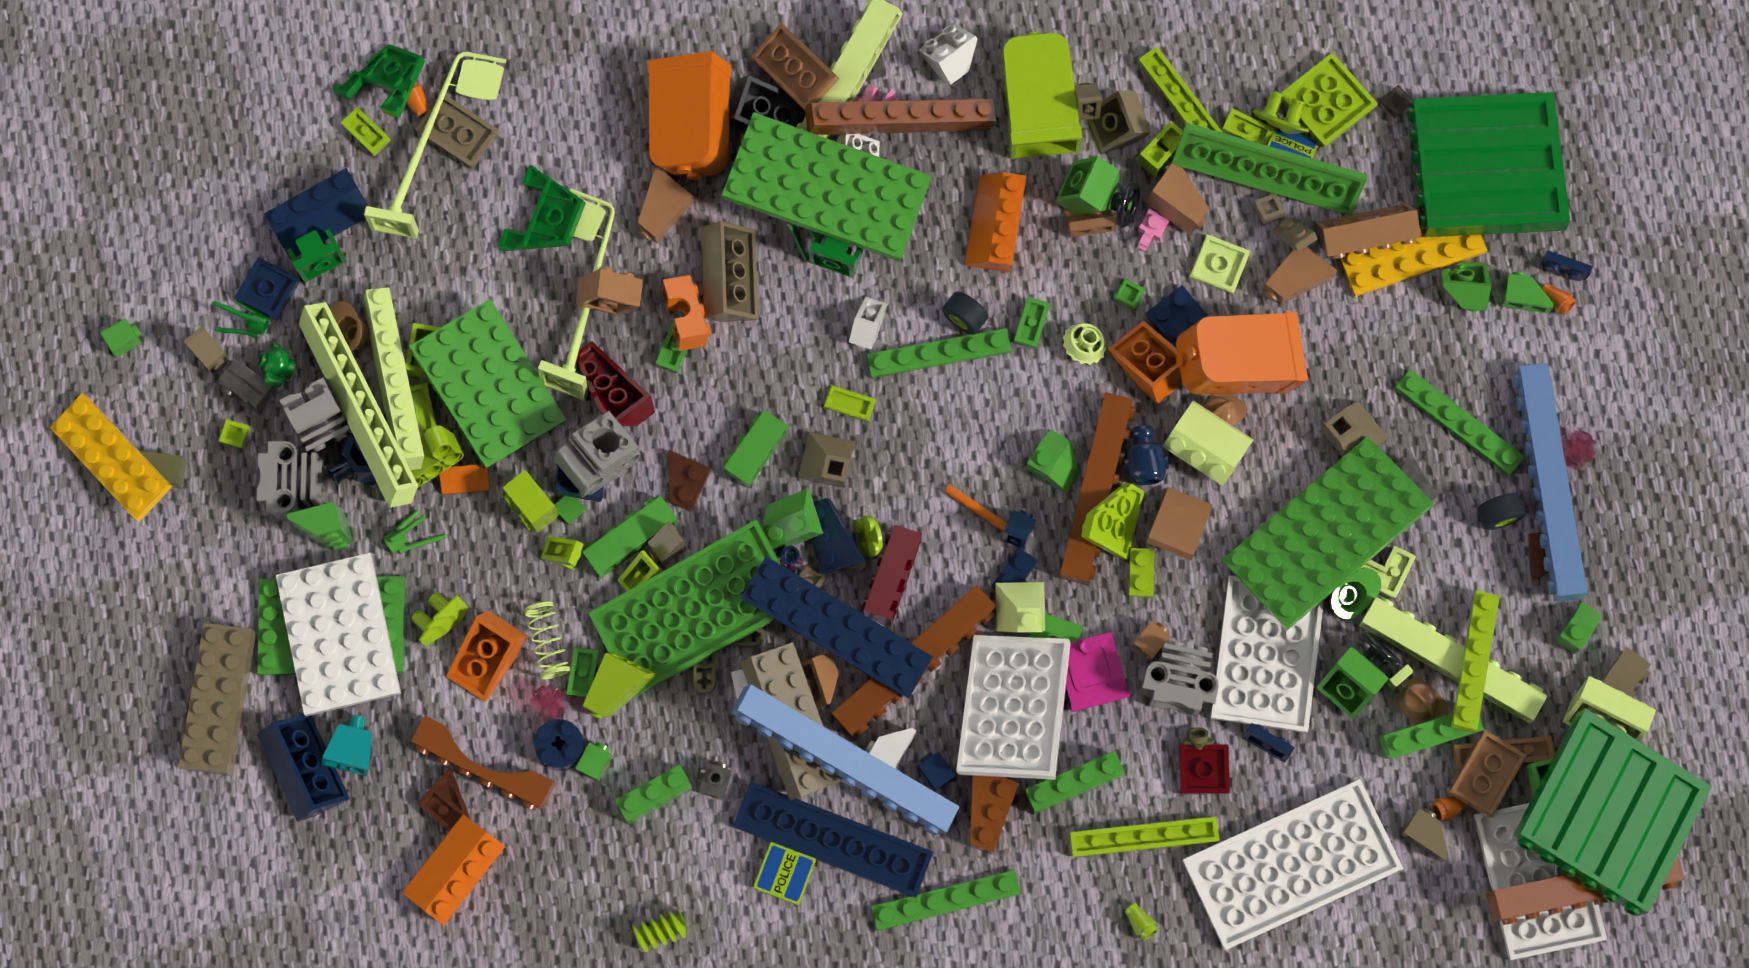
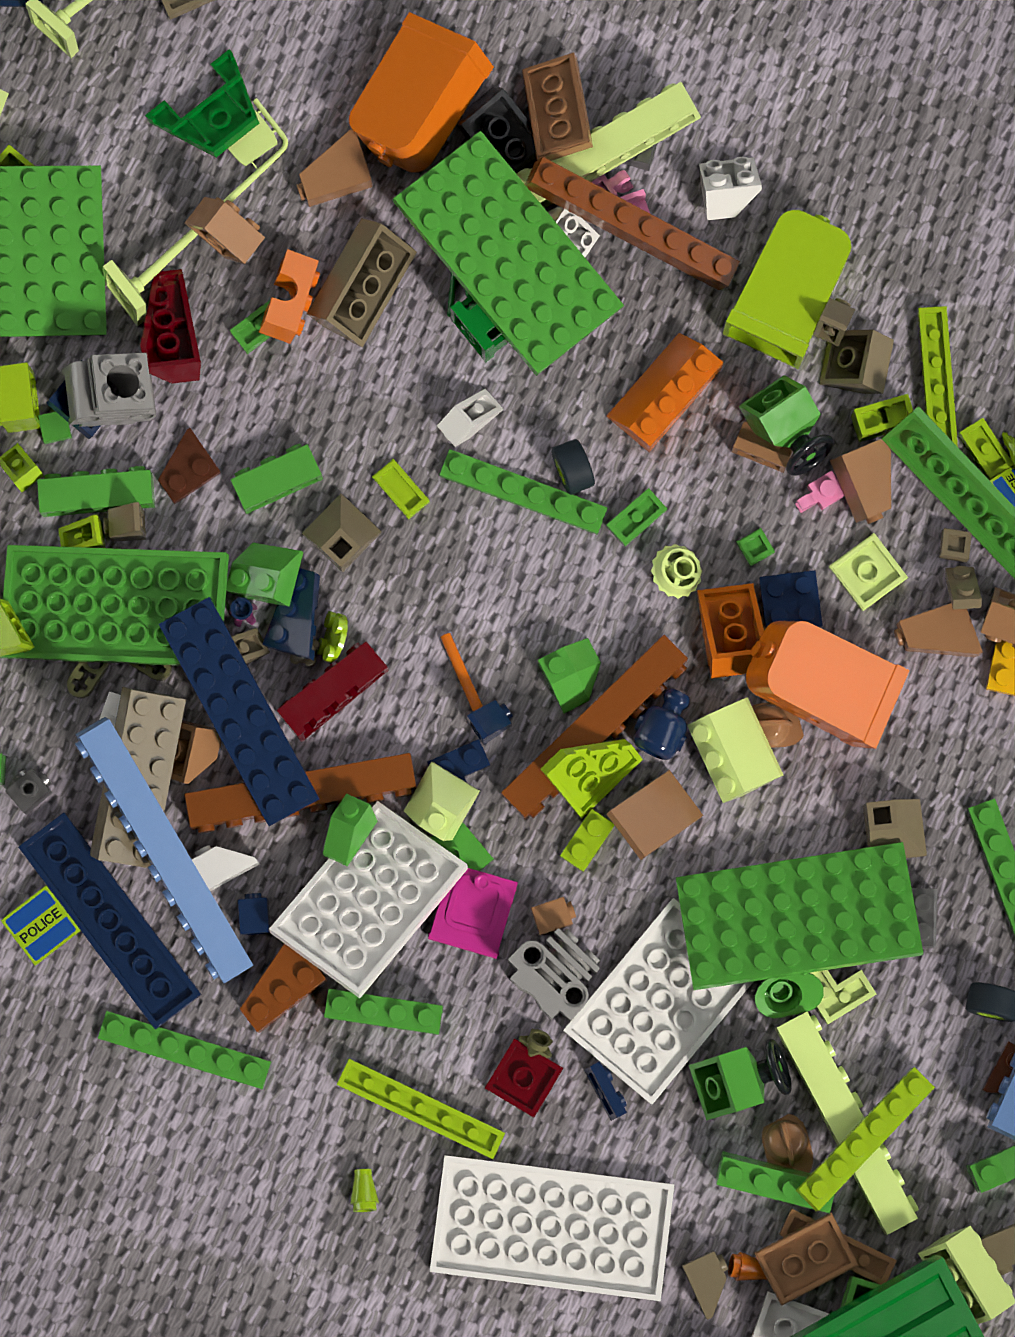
camera: 30 degrees right, 5 degrees up
(968, 665) = (348, 829): none -> bright green slope
(1399, 677) = (781, 1106): yellowish green tile -> none

